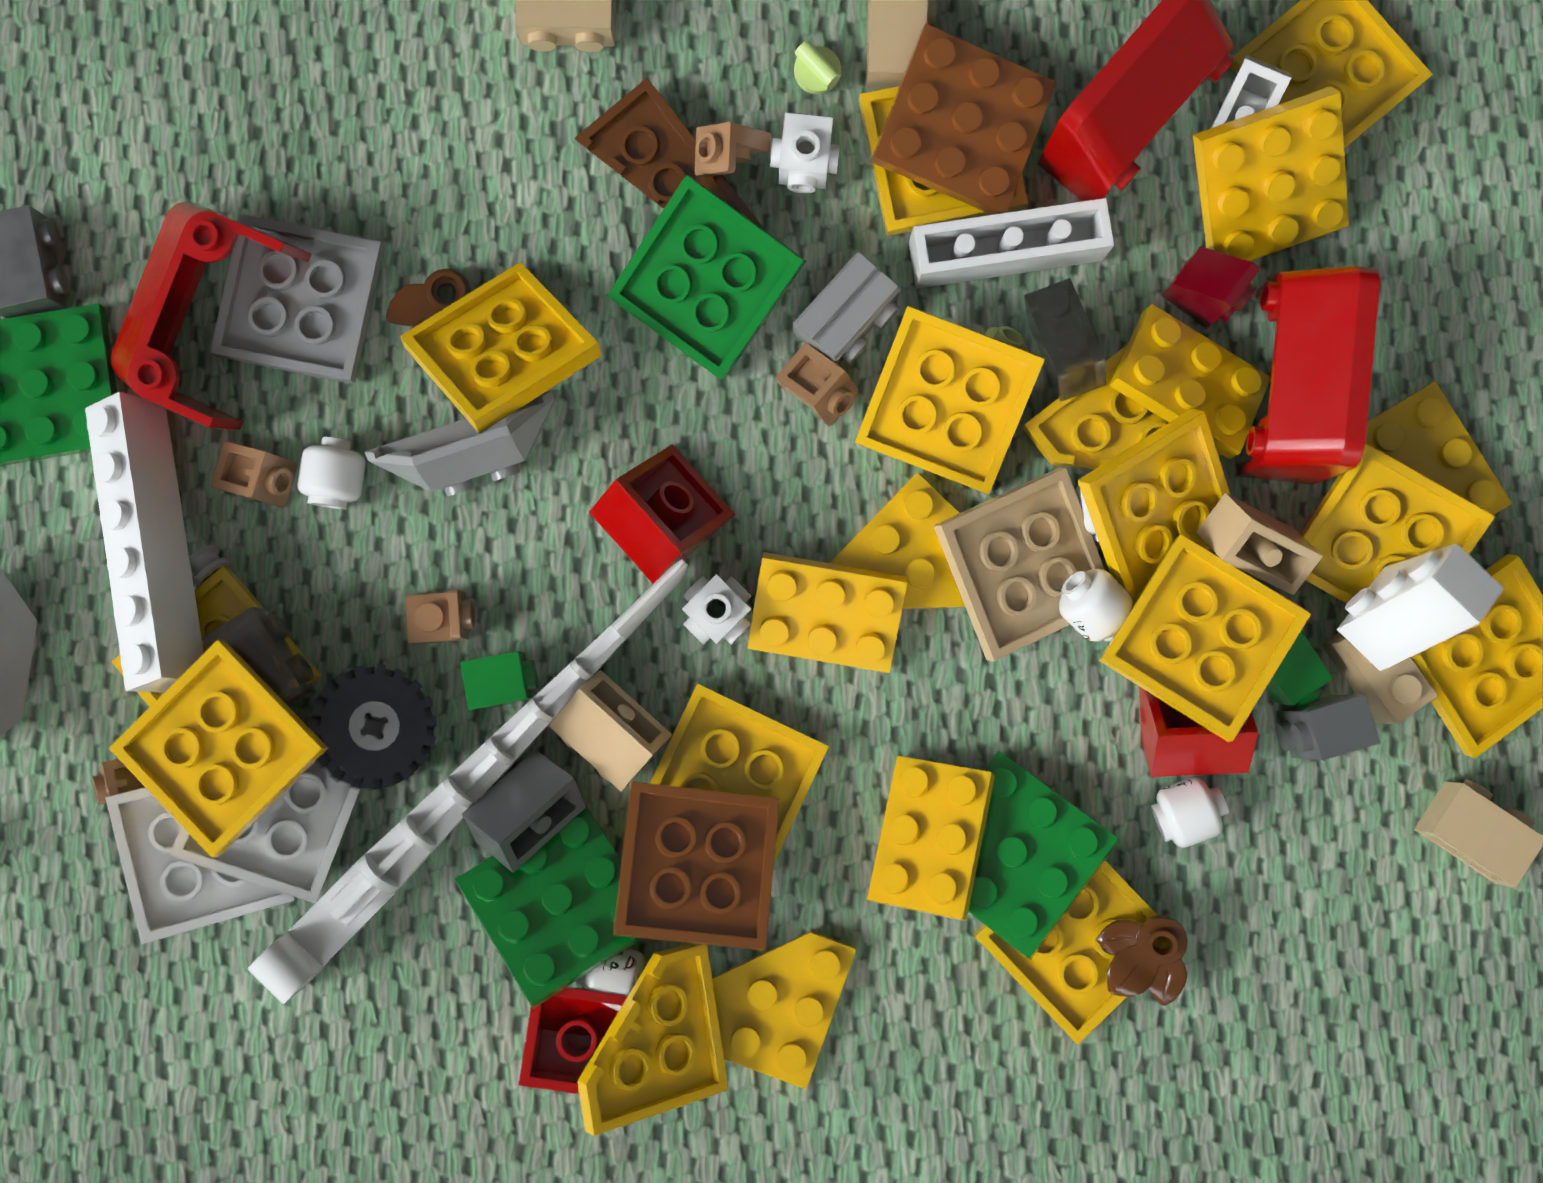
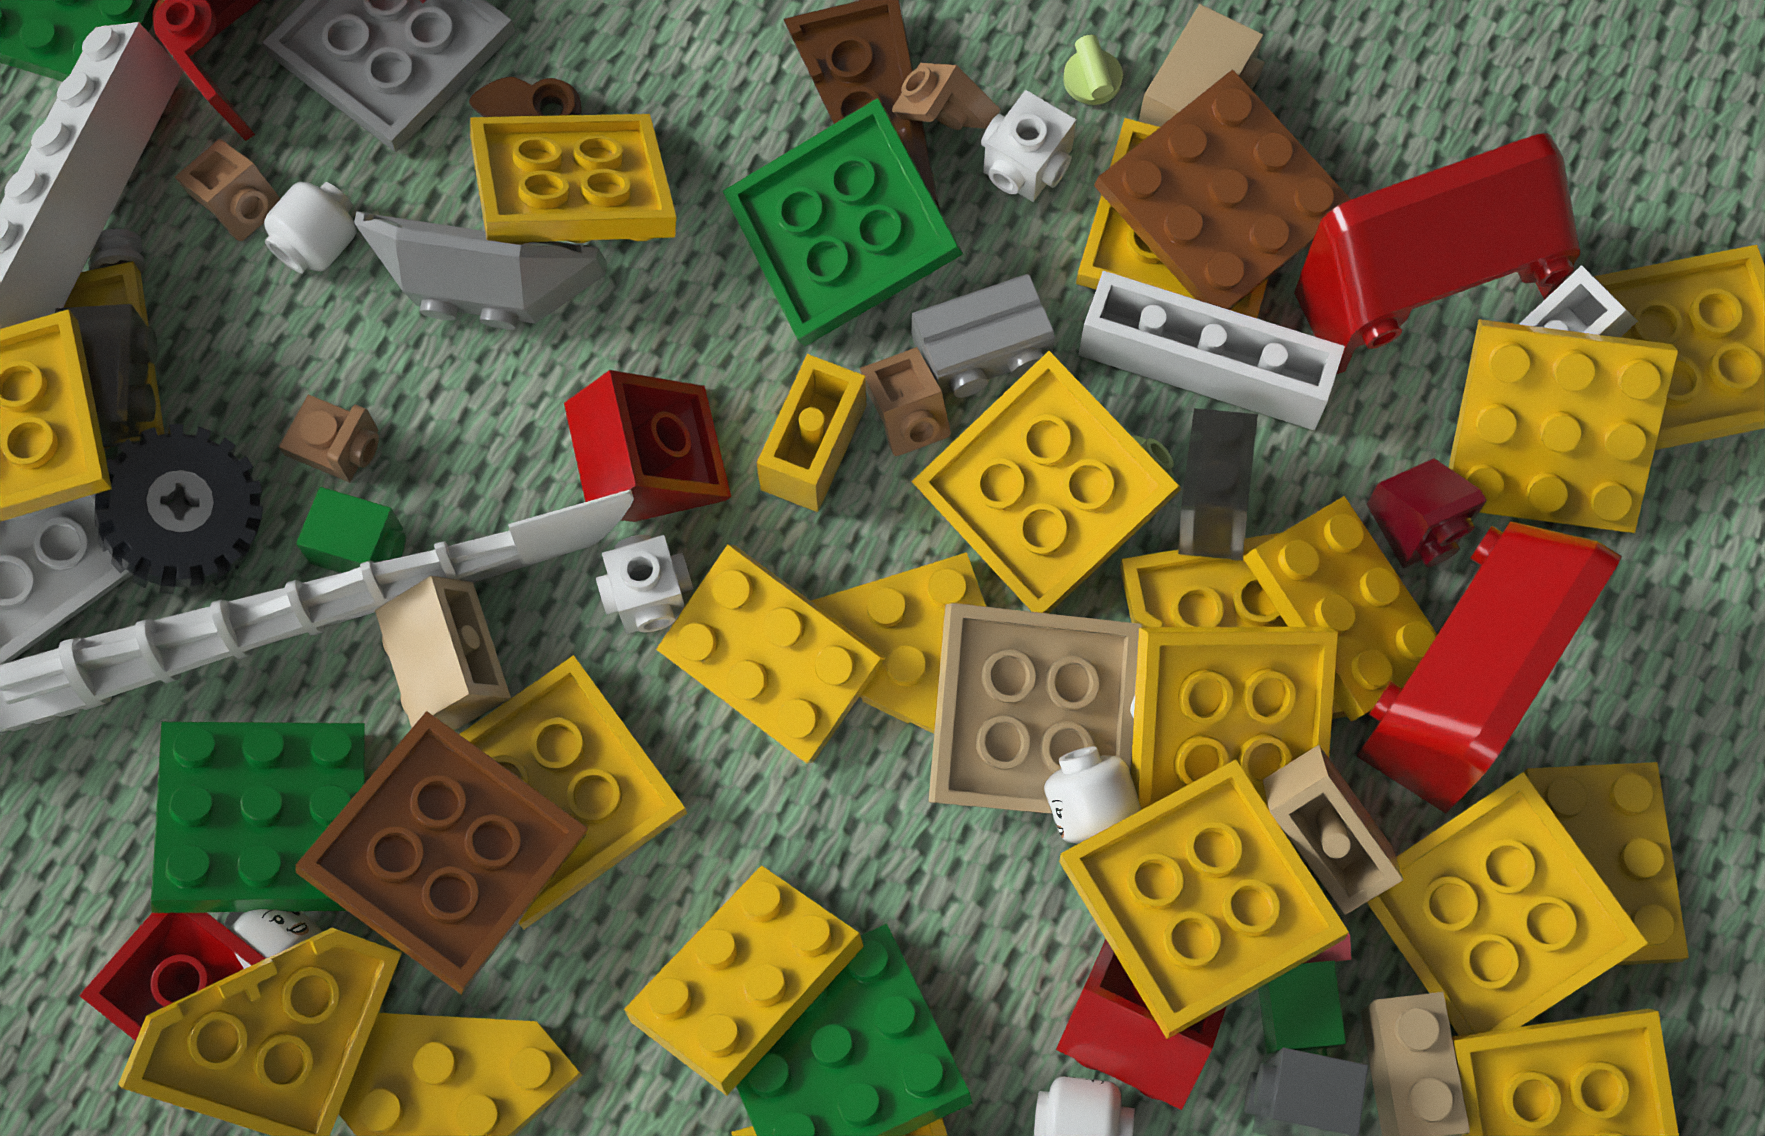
camera: 30 degrees right, 15 degrees down
(524, 810) = (287, 687): dark grey brick -> none
(772, 444) = (812, 433): none -> yellow brick
(1418, 605) = (1480, 973): white wedge -> none

